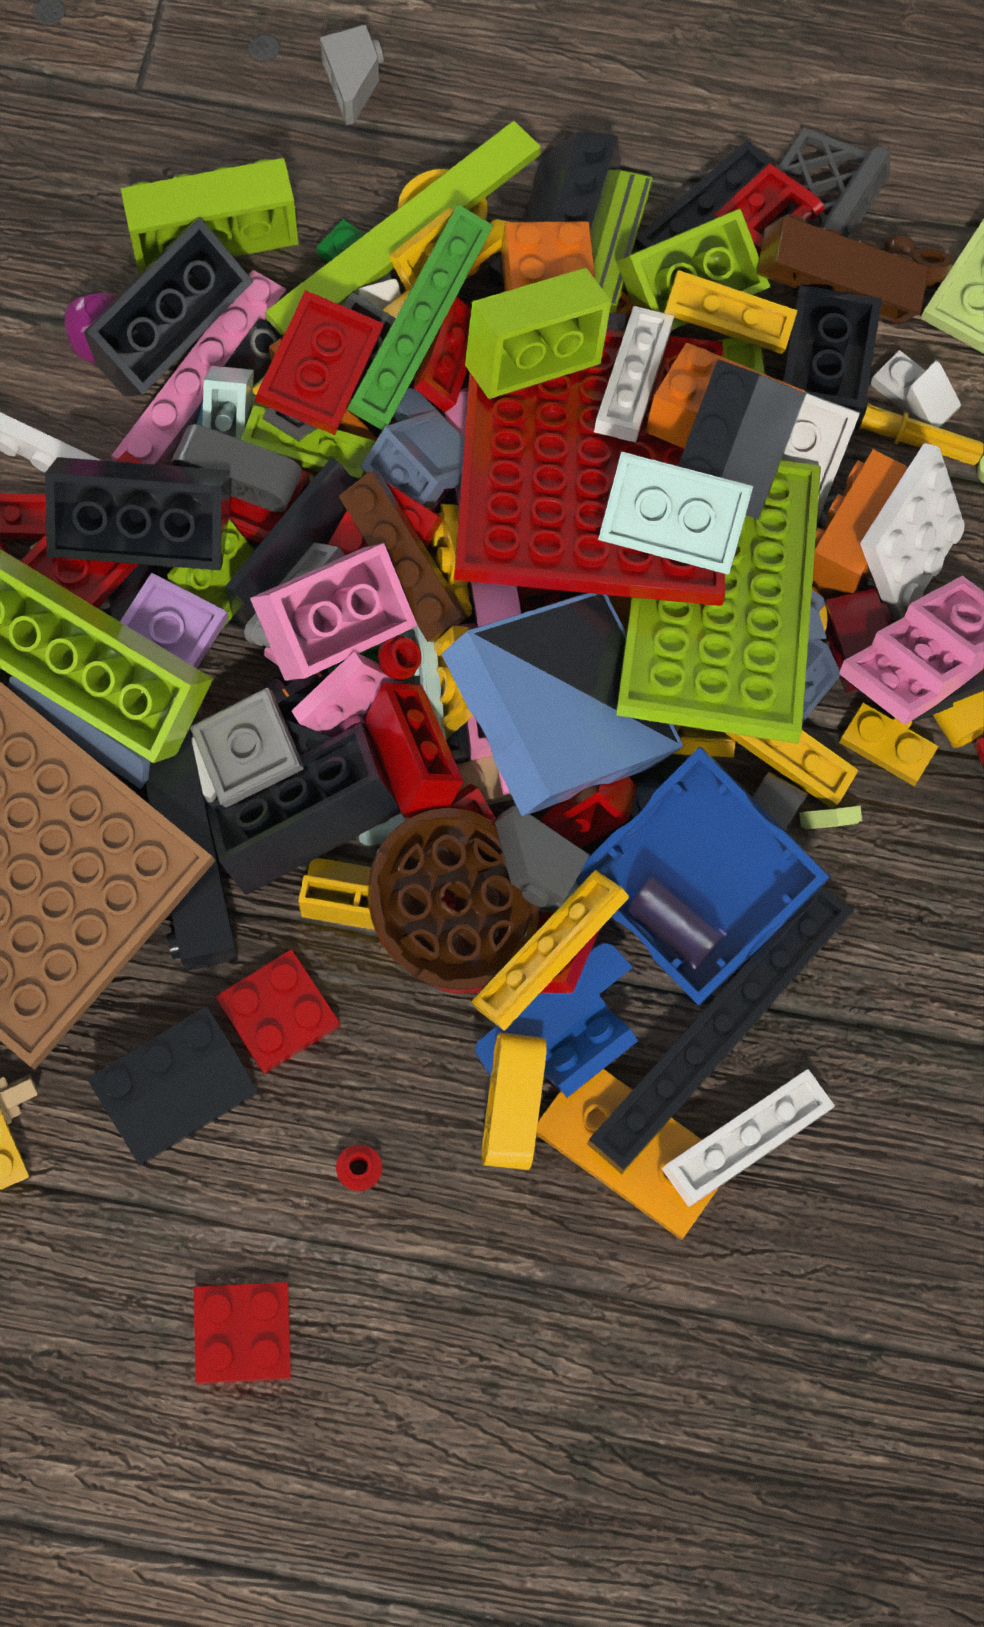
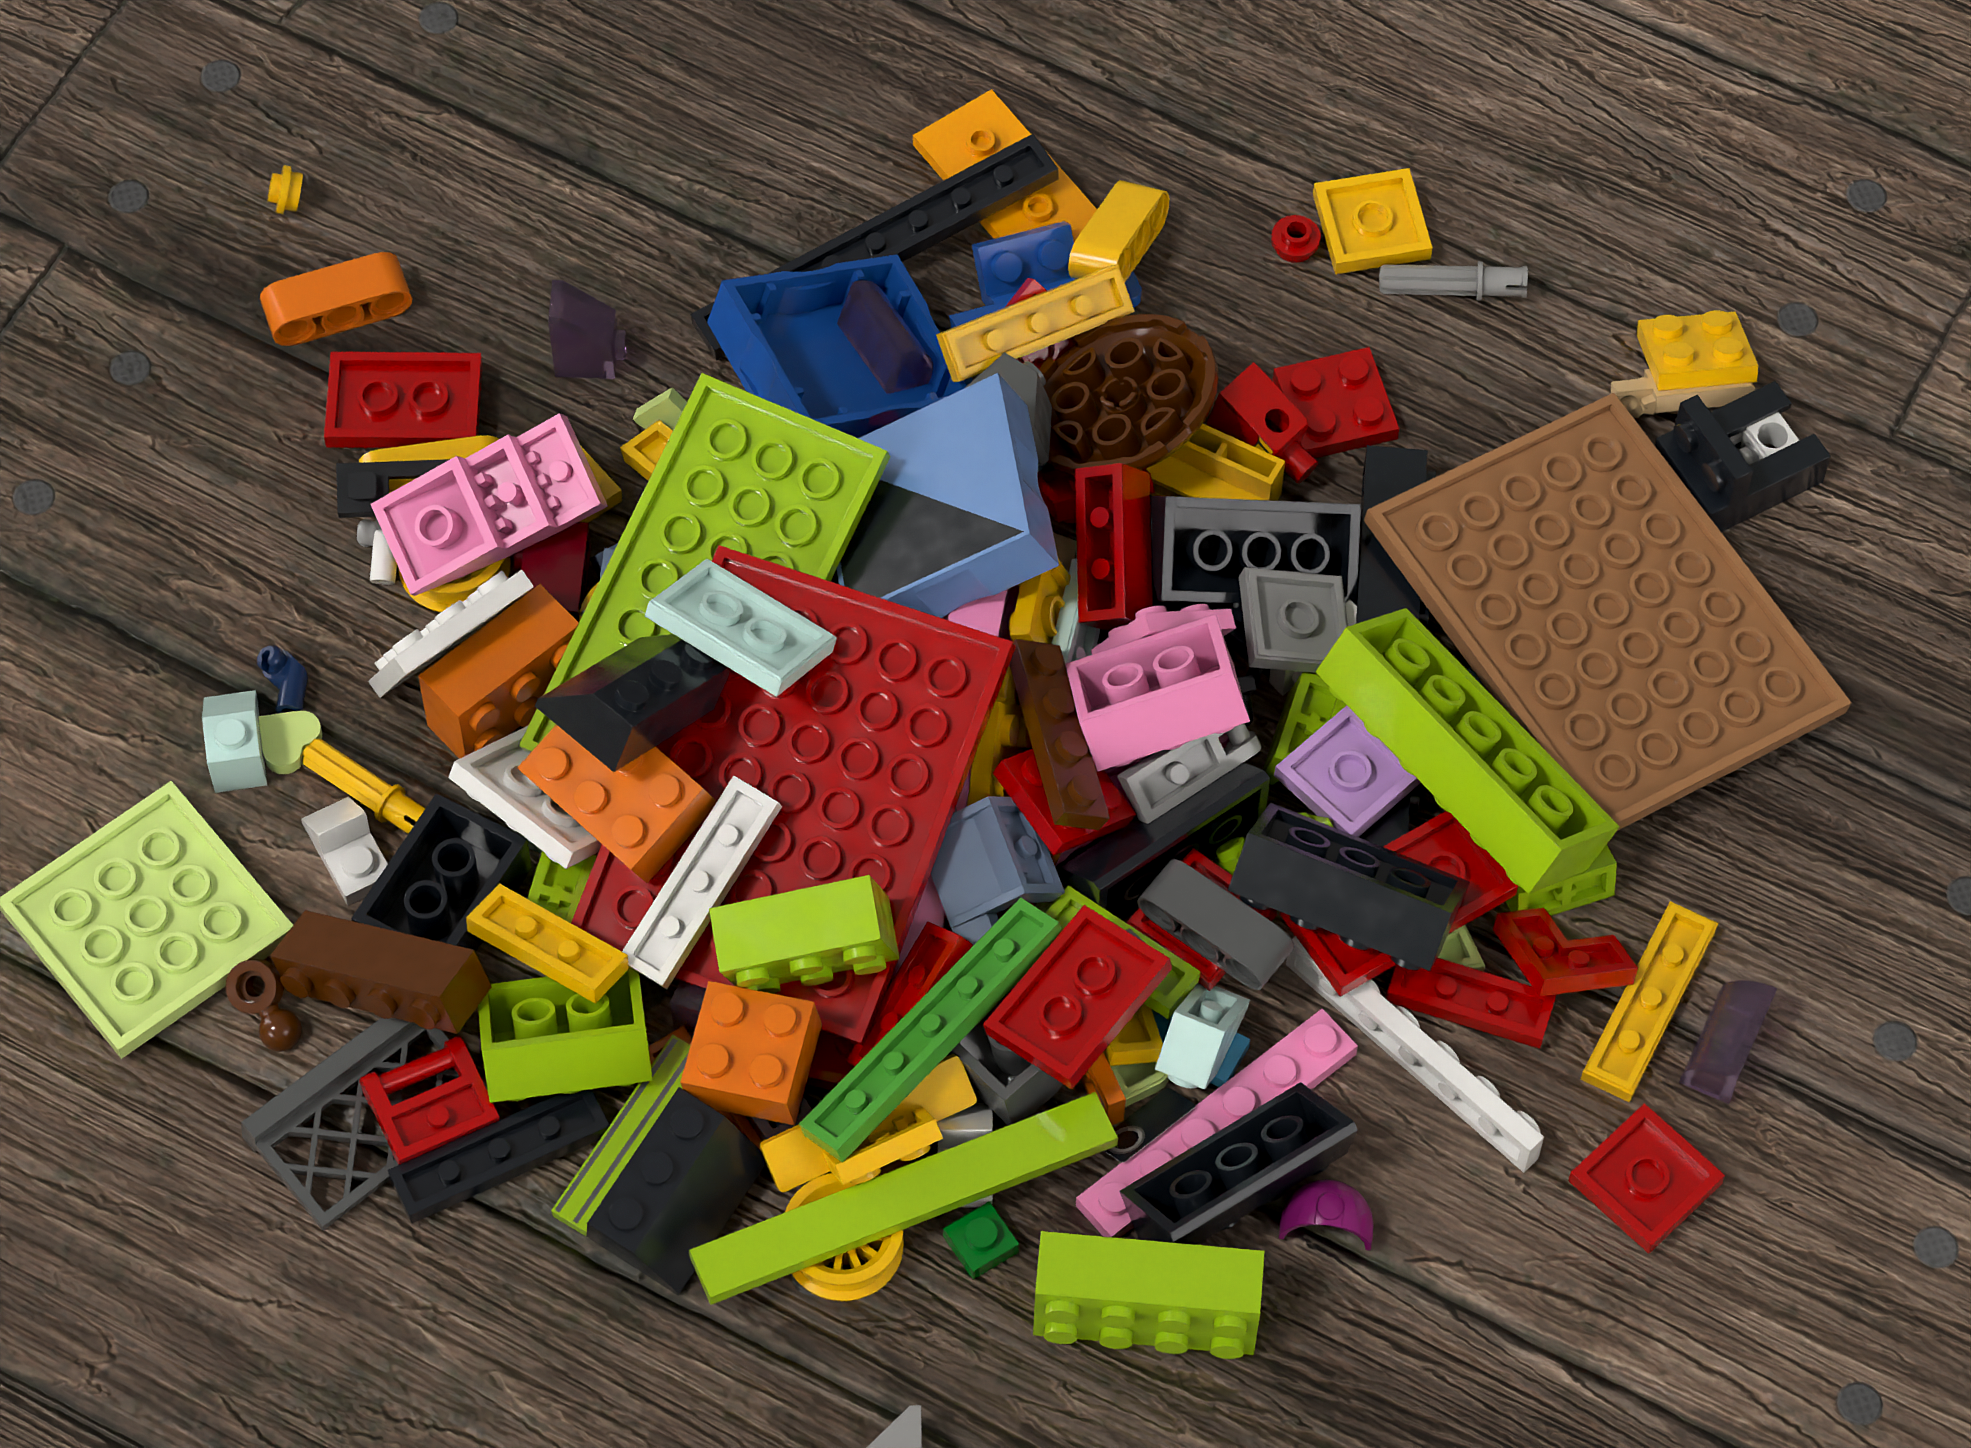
camera: 160 degrees left, 10 degrees down
(172, 1085) = (1469, 363): black slope -> none
(204, 1166) = (1454, 280): none -> light grey axle
(228, 668) = (1304, 712): none -> lime hinge
(242, 1333) = (1456, 137): red plate -> none
(294, 1205) = (1372, 221): none -> yellow plate
(332, 943) = (1264, 418): none -> red torso
(408, 655) = (1092, 640): red plate -> none
(748, 1138) = (892, 142): white plate -> none
(933, 852) = (583, 334): none -> clear purple slope

